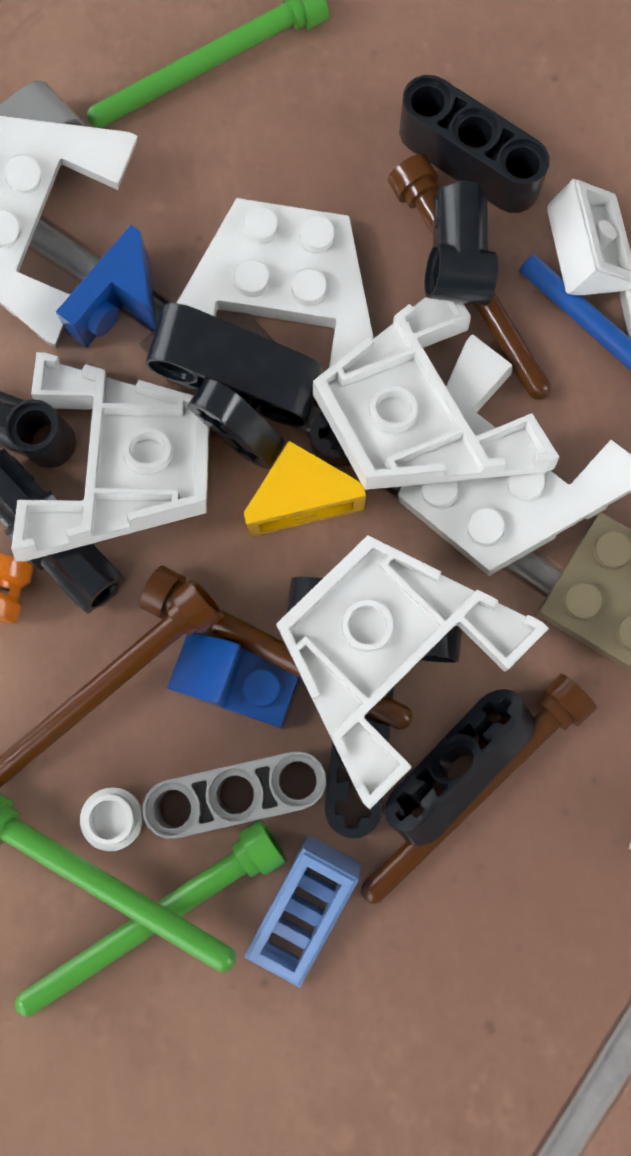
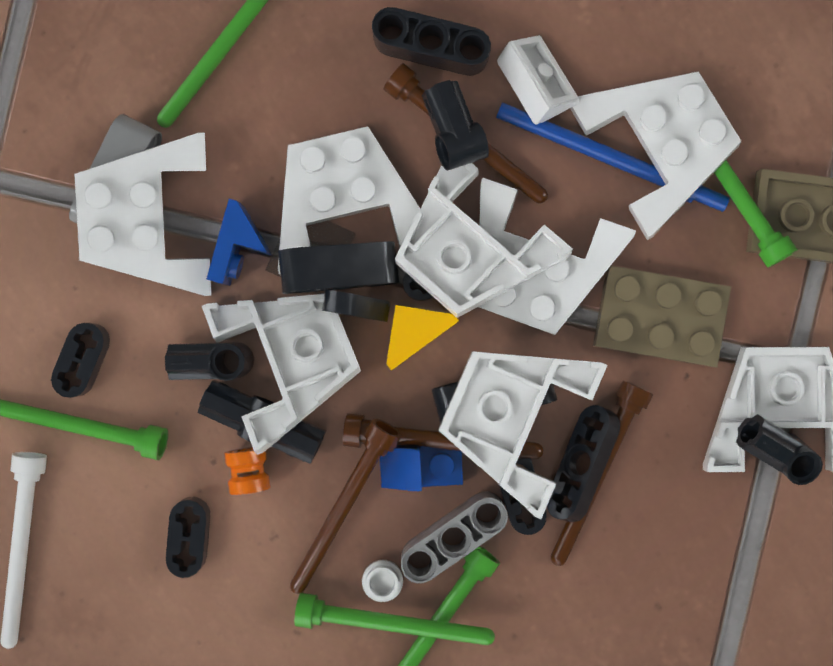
camera: 25 degrees left, 10 degrees up
(328, 863) = (528, 560): medium blue slope -> none

